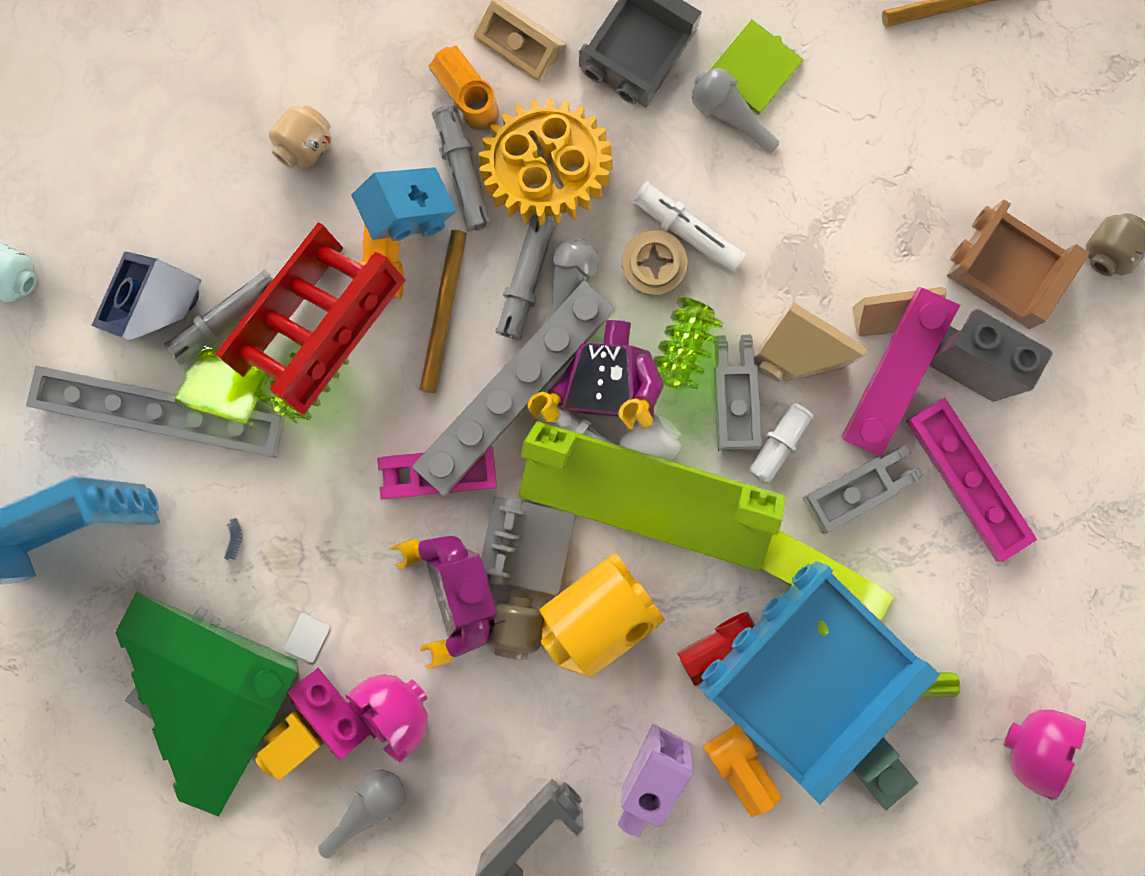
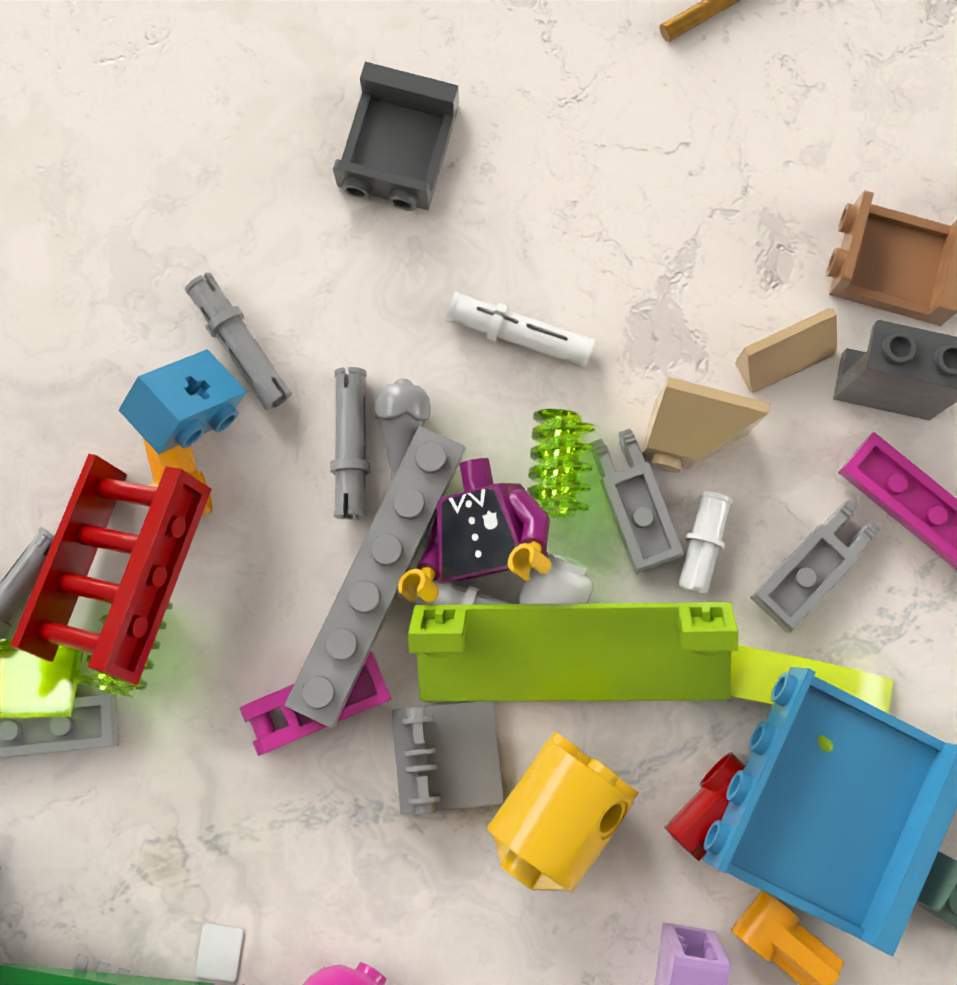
camera: 15 degrees left, 5 degrees down
(234, 532) = (94, 851): sand blue leg -> none
(300, 137) = (39, 362): tan head -> none
(443, 311) = (265, 512): pearl gold bar -> none
(460, 593) = (387, 838): magenta torso -> none
(465, 87) = (214, 248): light orange piece -> none
(516, 628) = (464, 860): dark tan head -> none
(518, 39) = (259, 177): tan slope -> none
(579, 146) = (299, 332): yellow gear -> none
(667, 249) = (501, 360): tan gear -> none
(718, 96) = (506, 172): light grey piece -> none
(759, 64) = (537, 128): lime piece -> none
(900, 371) = (813, 418): dark pink plate -> none

